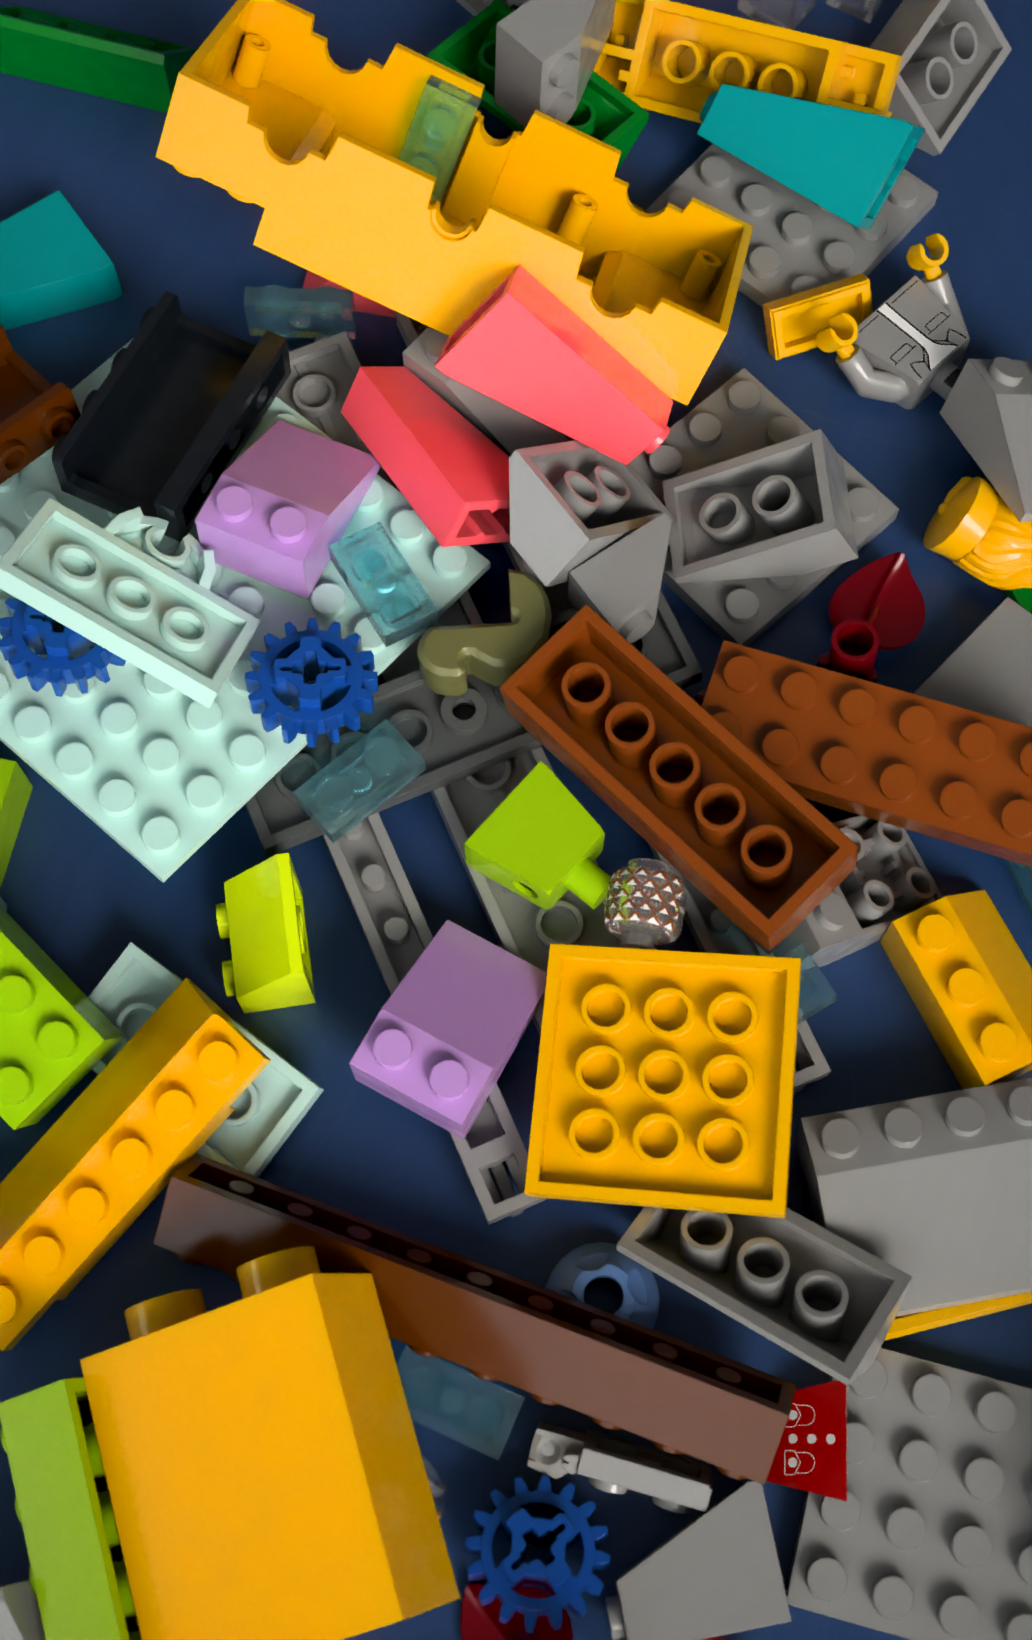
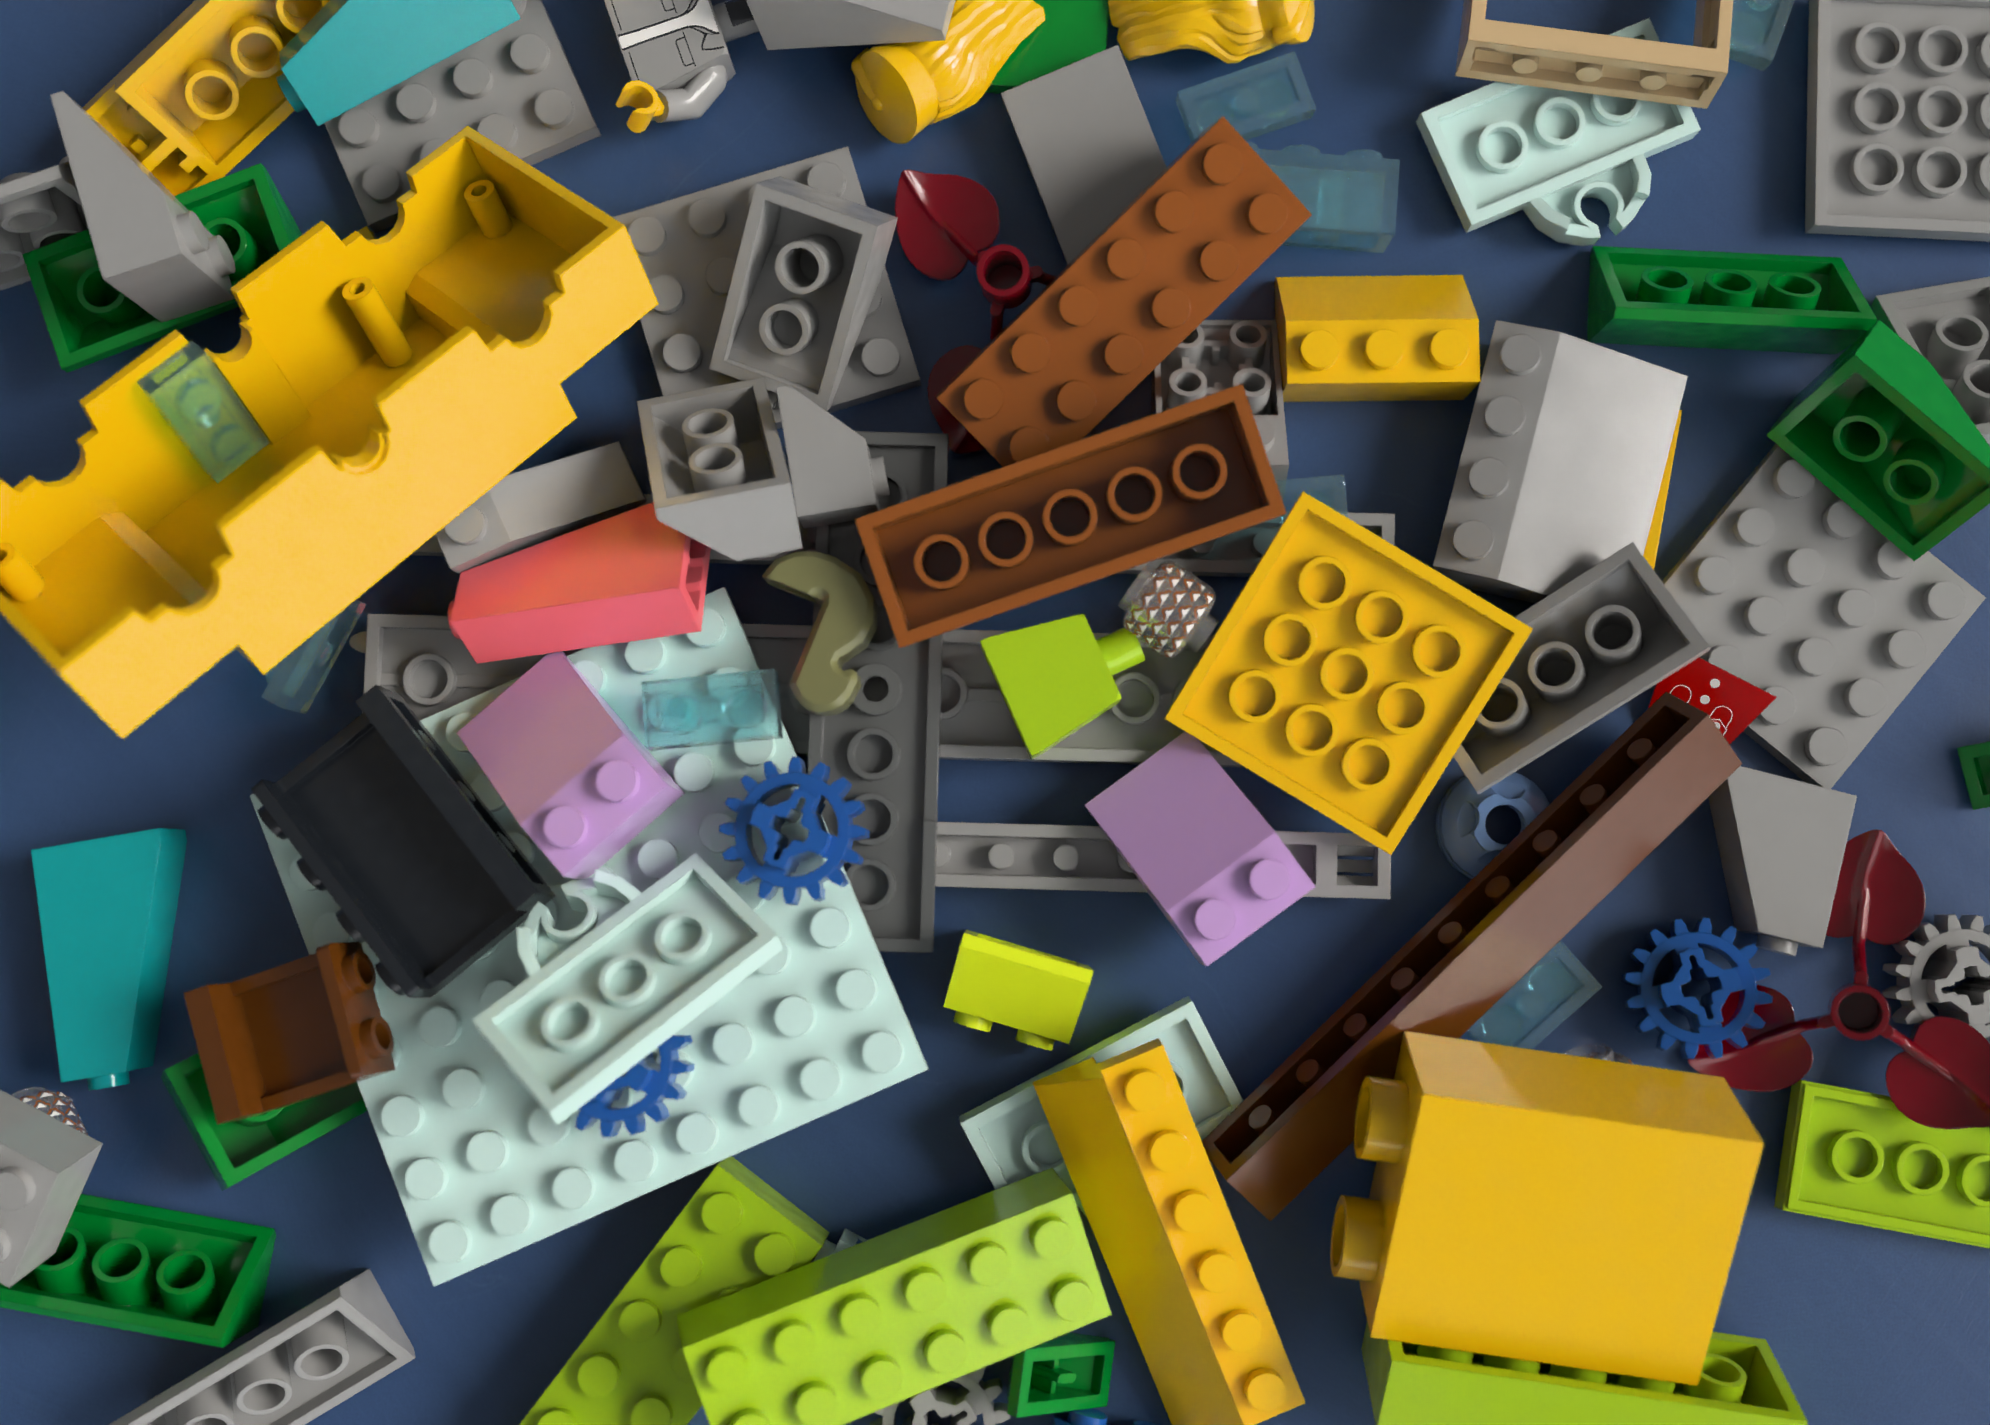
camera: 60 degrees left, 15 degrees up
(359, 780) = (907, 827): clear light blue plate -> none
(555, 369) = (561, 422): coral slope -> none
(622, 1465) = (1655, 883): light grey hinge -> none
(797, 319) = (587, 111): yellow tile -> none

